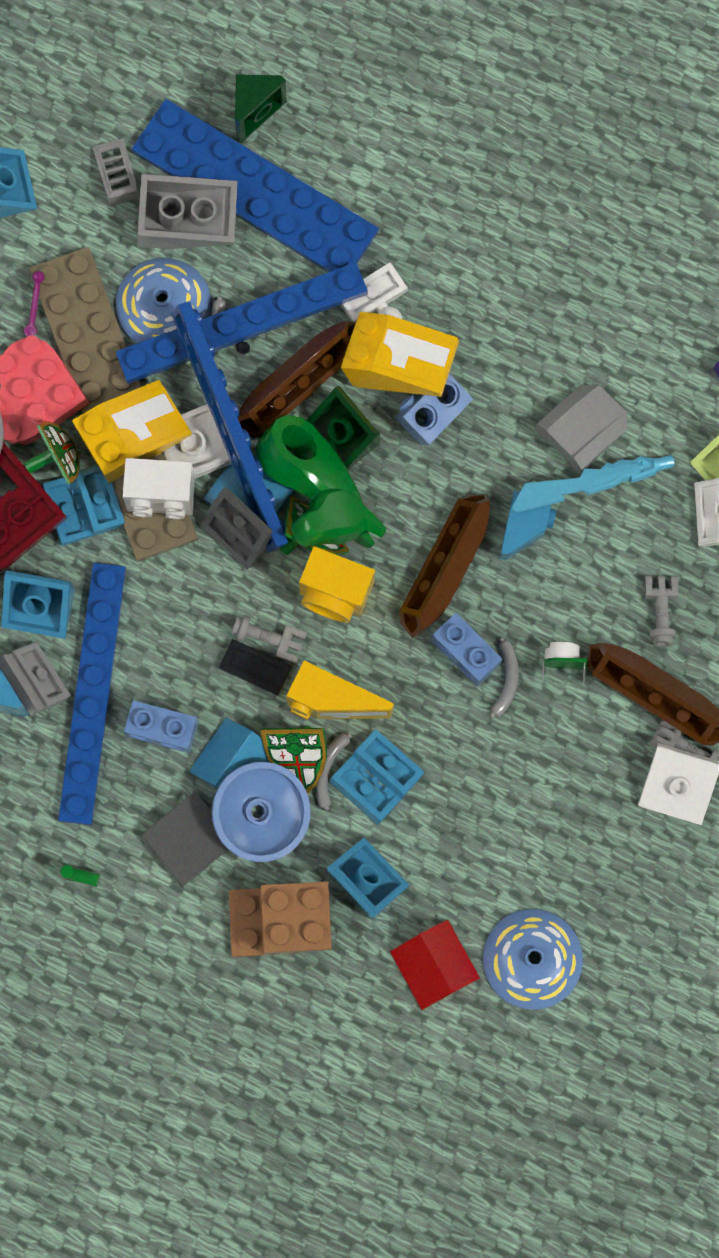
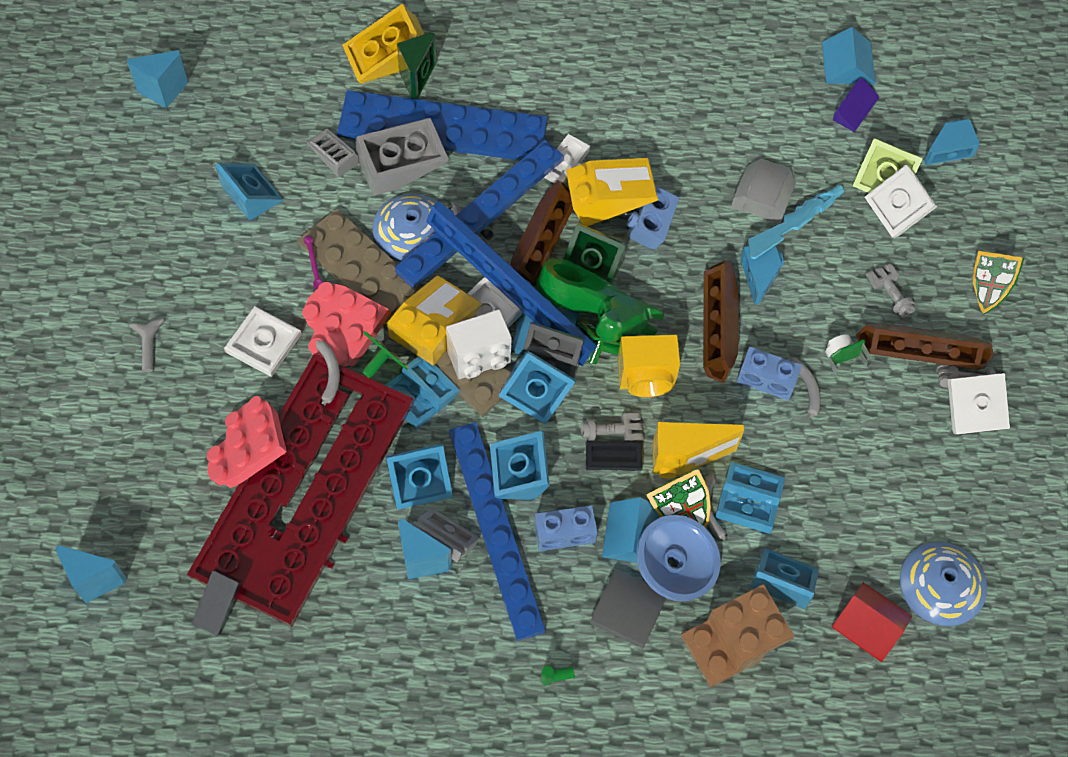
camera: 25 degrees left, 15 degrees down
(144, 639) = (520, 467): none -> dark azure slope
(202, 558) = (536, 387): none -> dark azure slope
(223, 52) = (375, 48): none -> yellow slope

